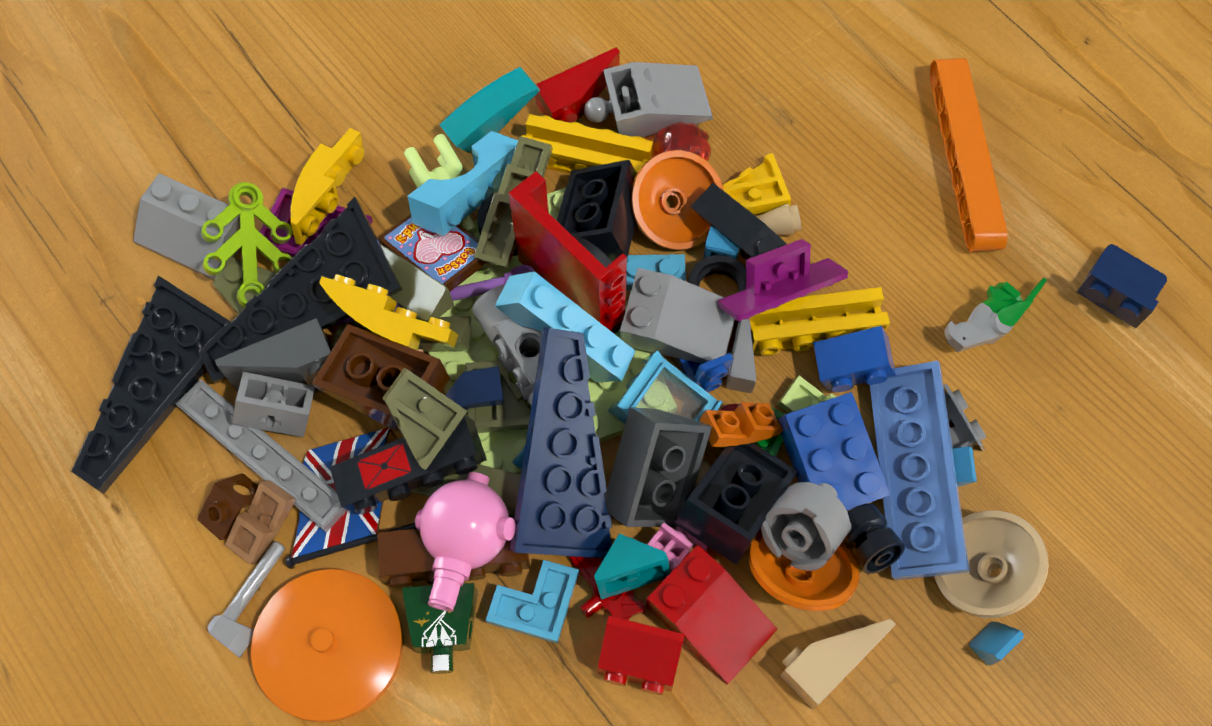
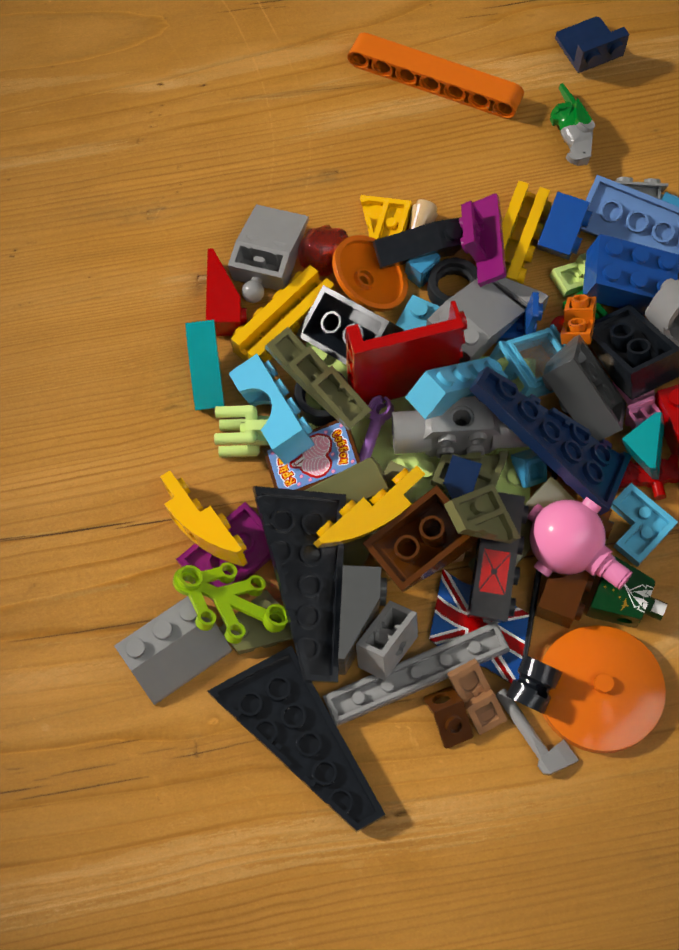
camera: 60 degrees left, 0 degrees up
(287, 567) = (534, 684): none -> black wheel

